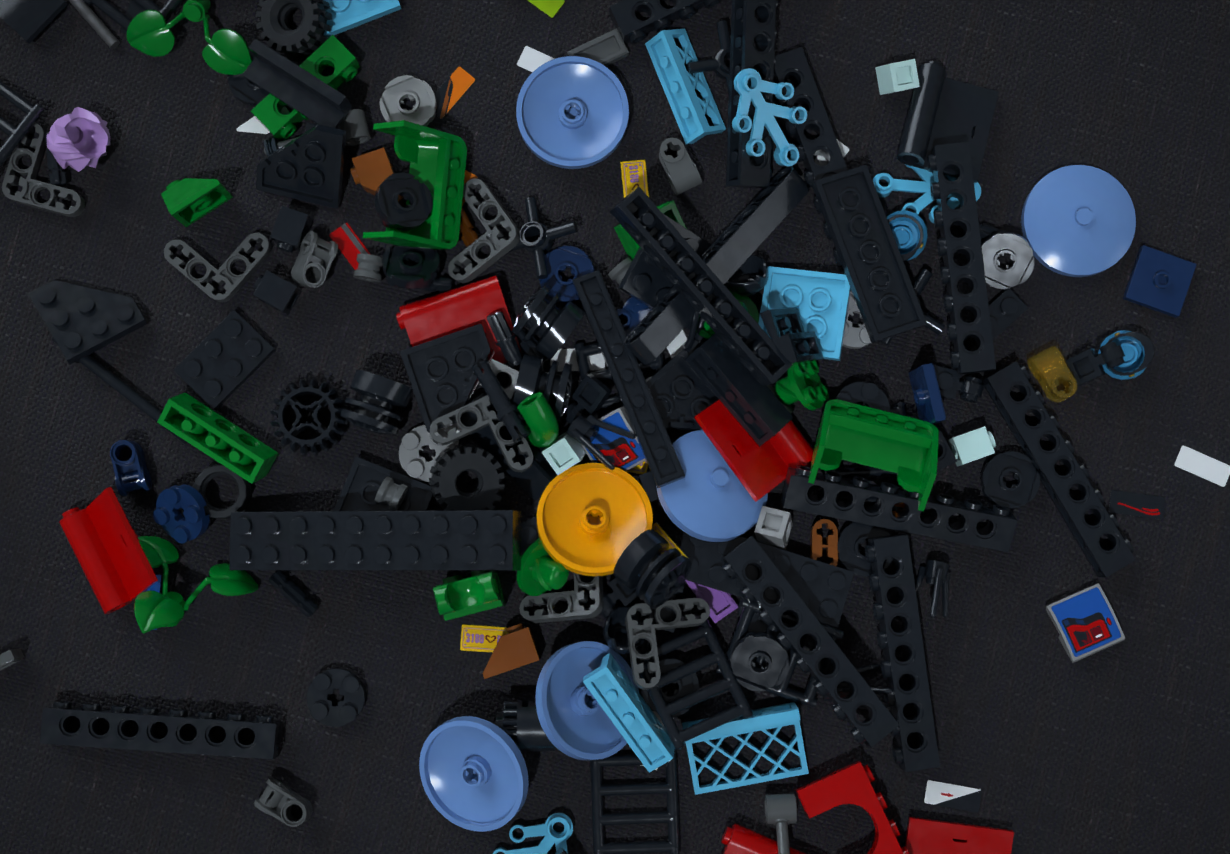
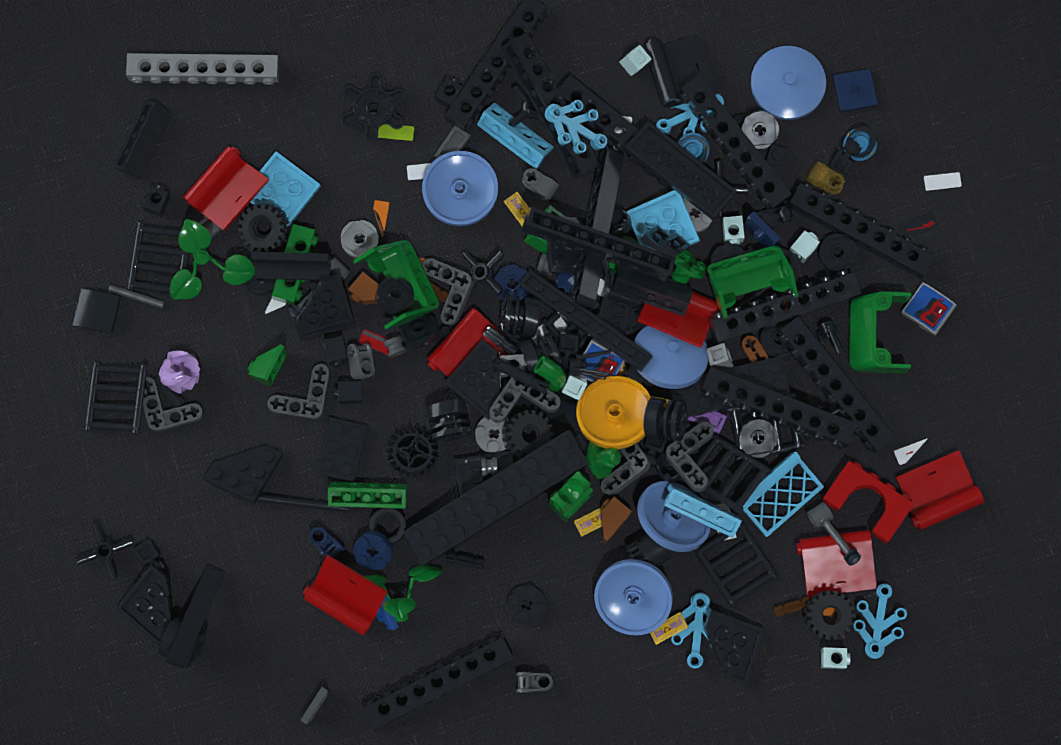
camera: 30 degrees left, 5 degrees down
(505, 838) = (669, 628): none -> yellow sticker
(897, 360) = (733, 222): none -> light aqua brick
(980, 605) = (862, 333): none -> green windscreen

